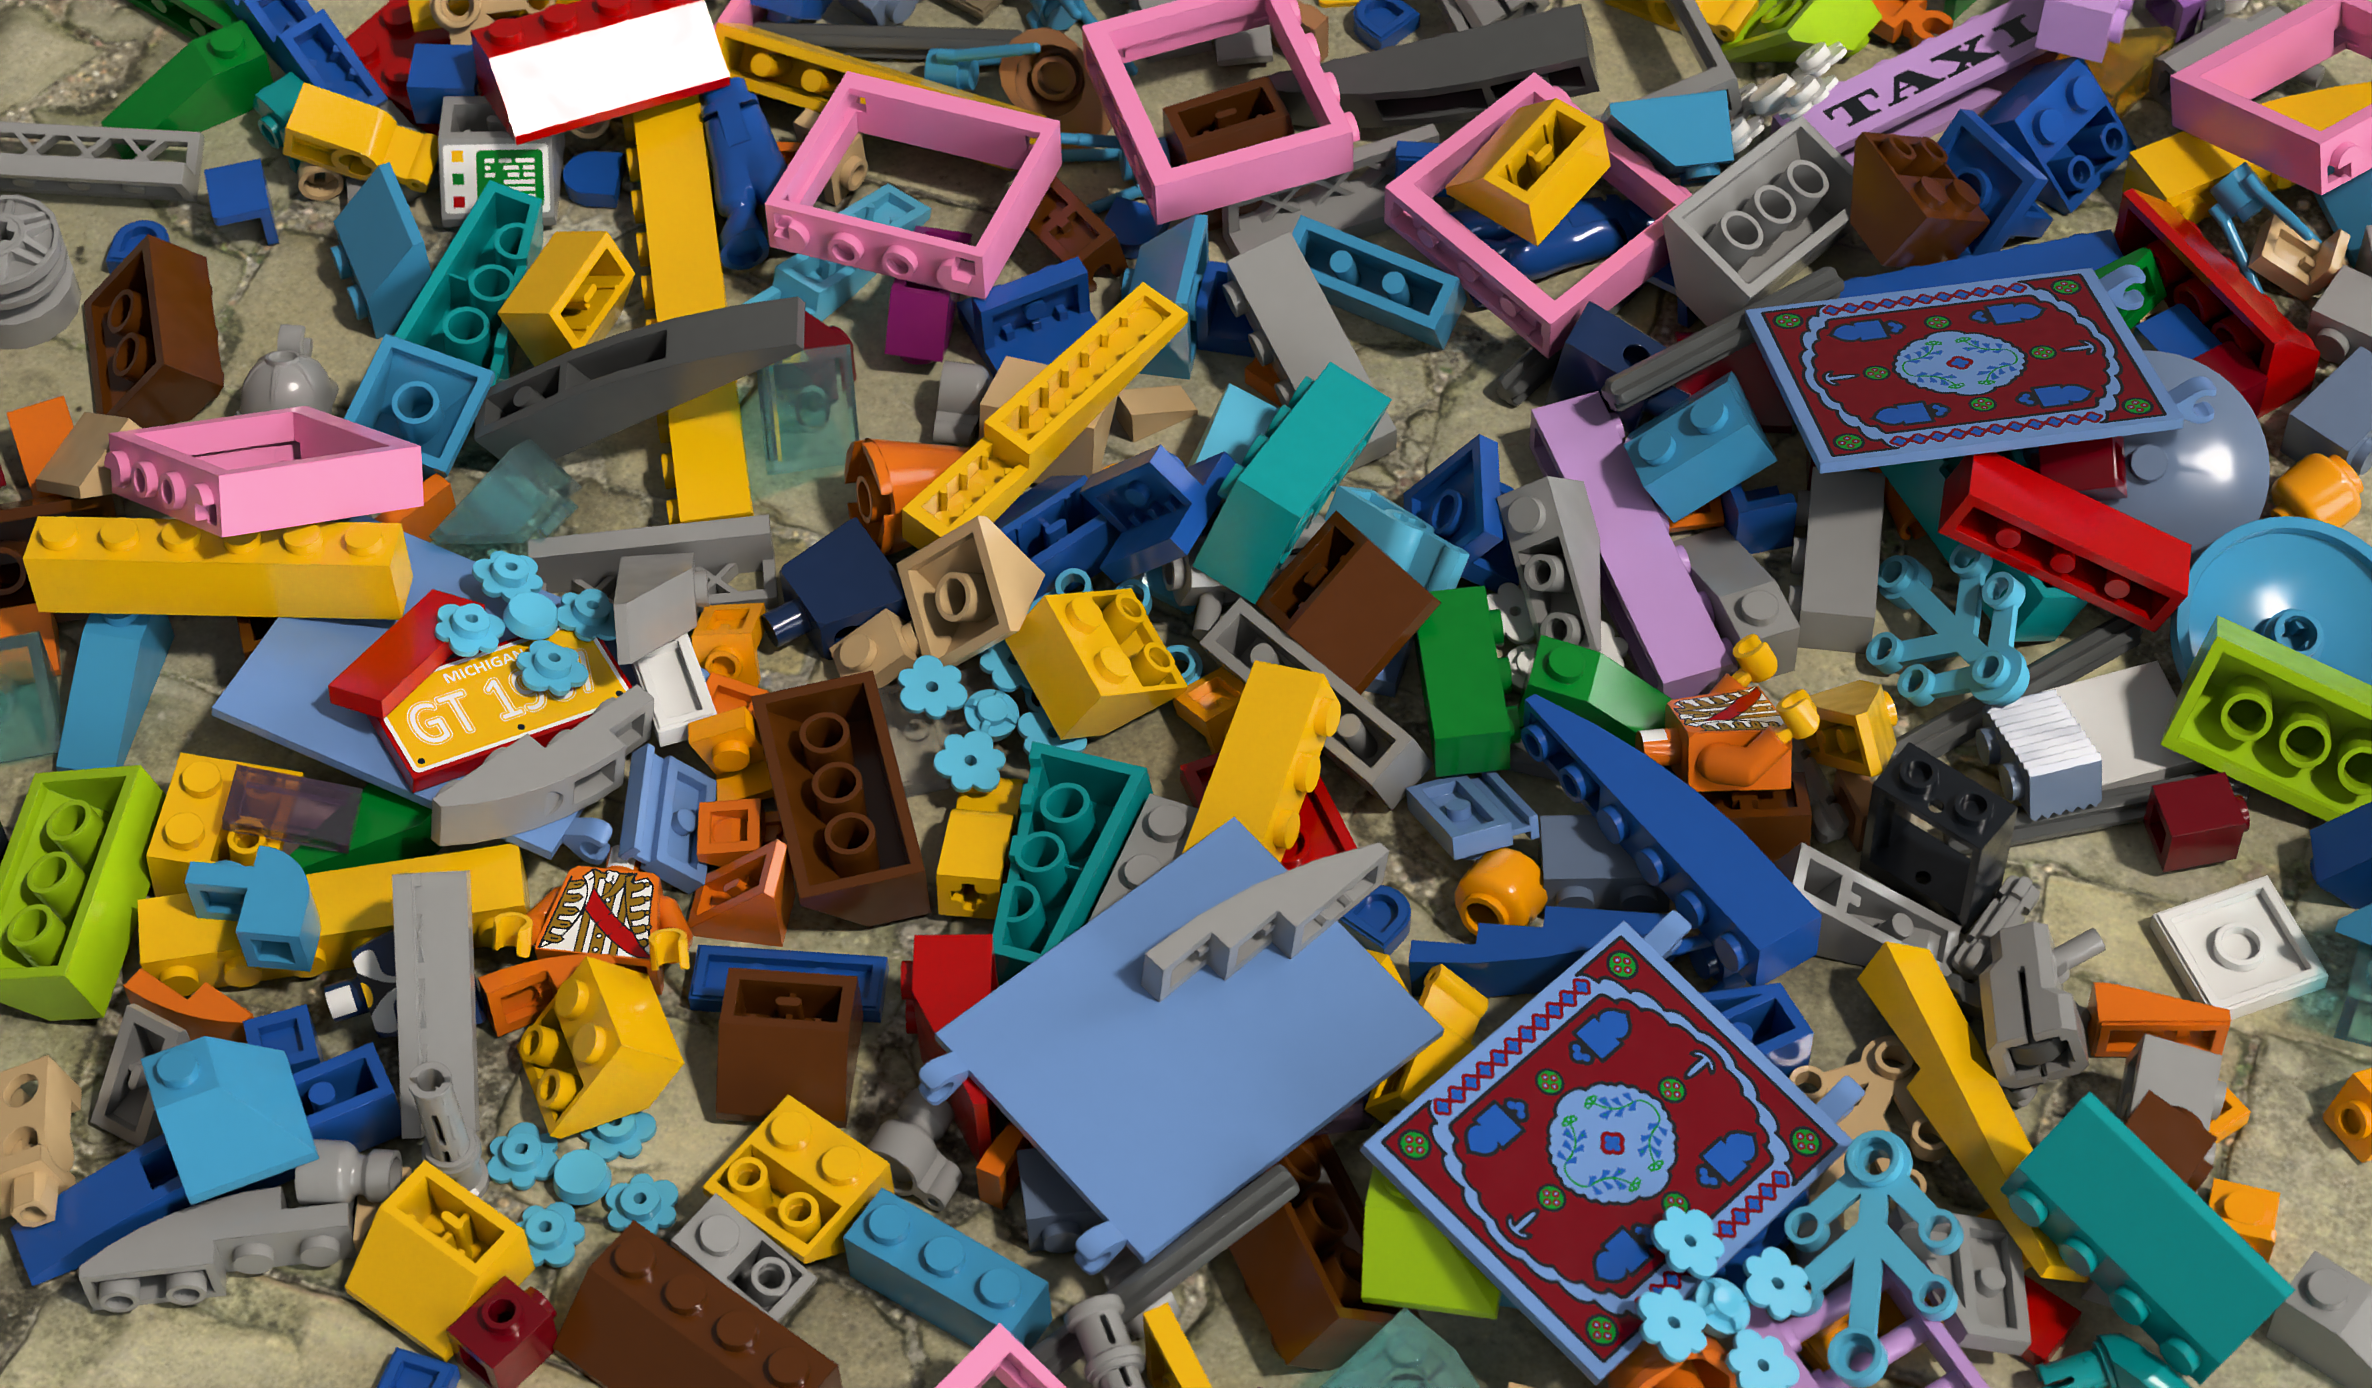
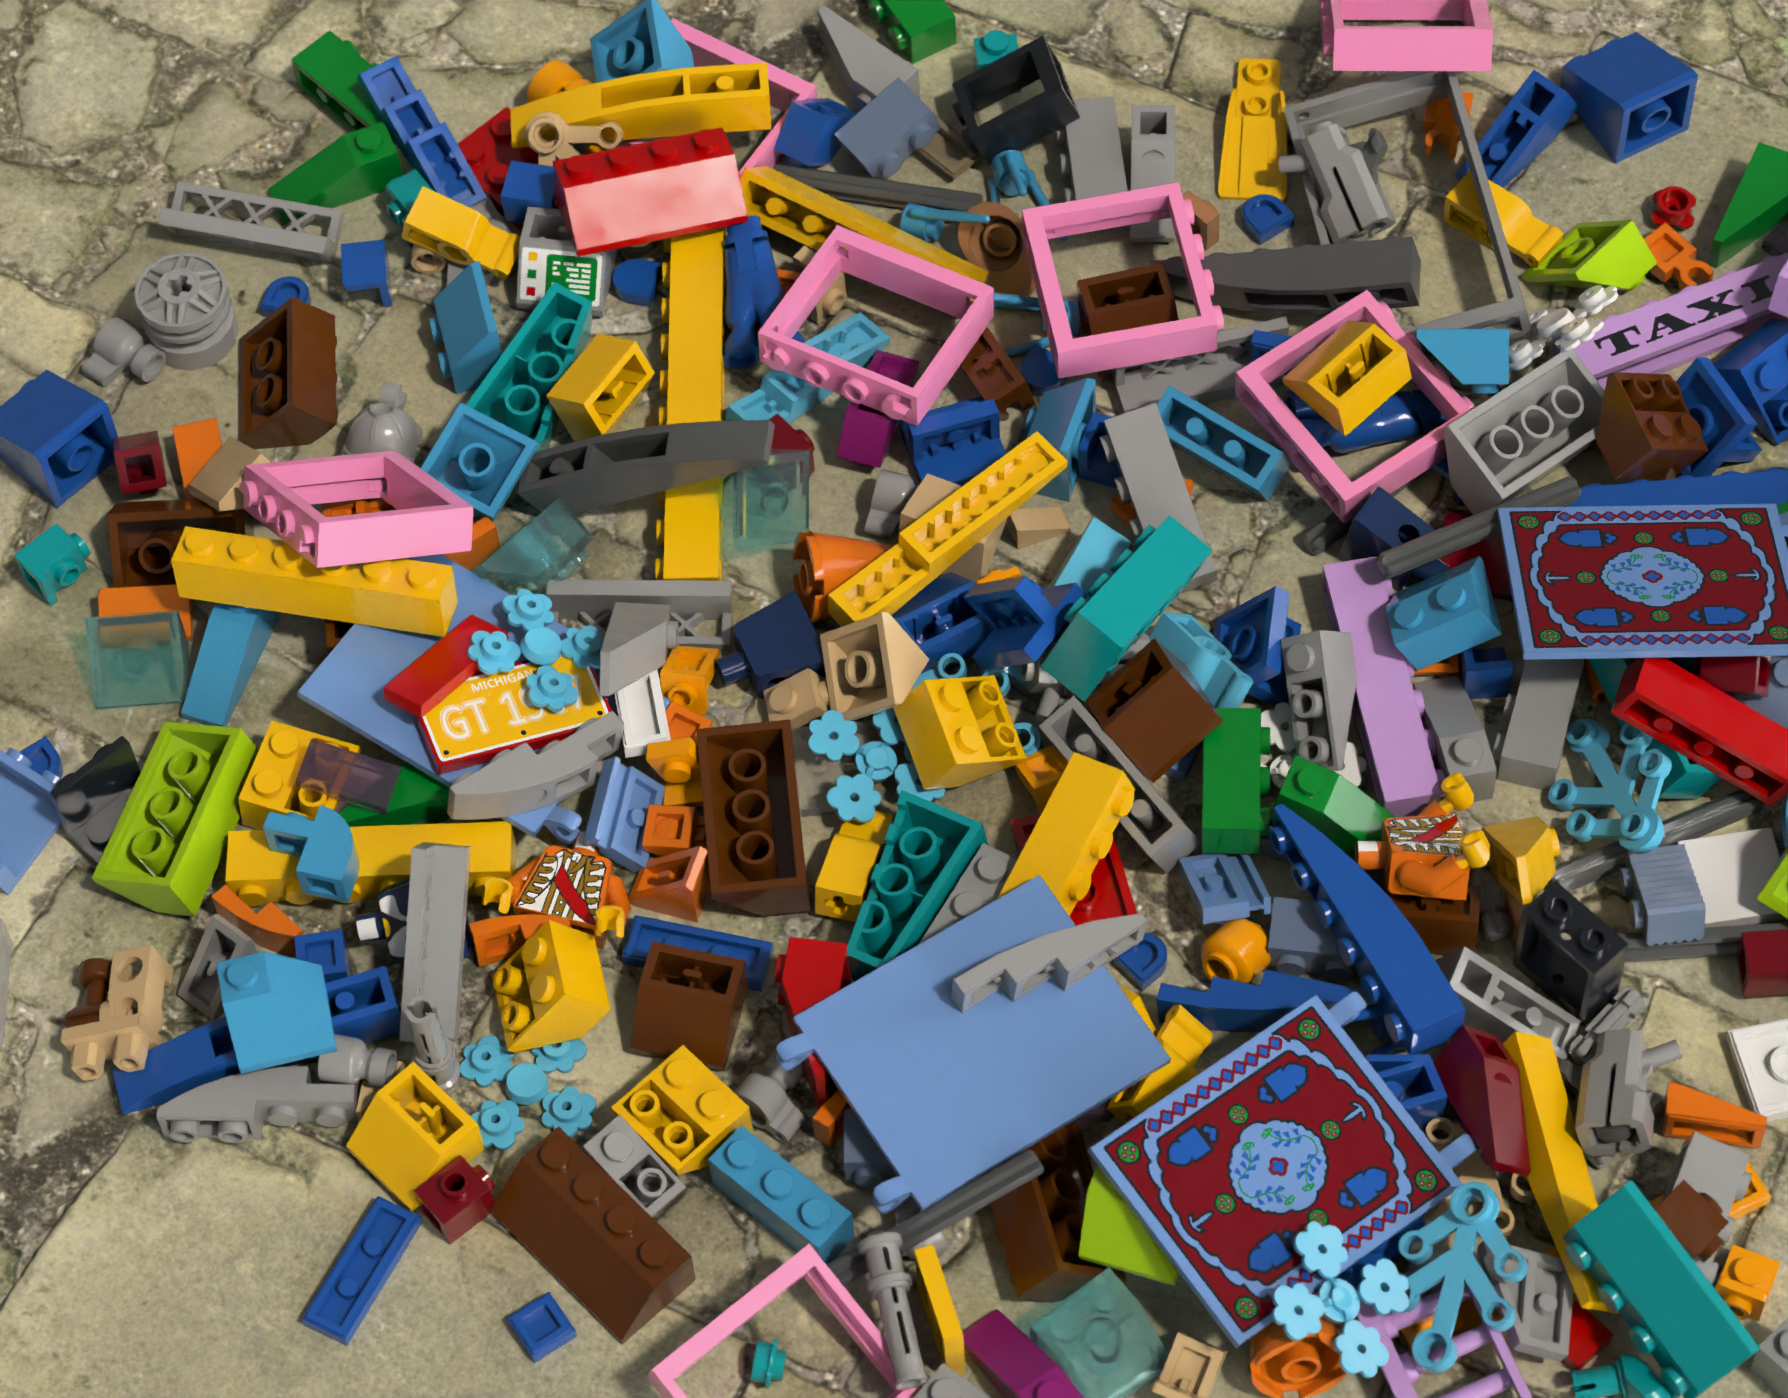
camera: 10 degrees right, 5 degrees up
(1866, 1028) = (1487, 1096): none -> dark red slope

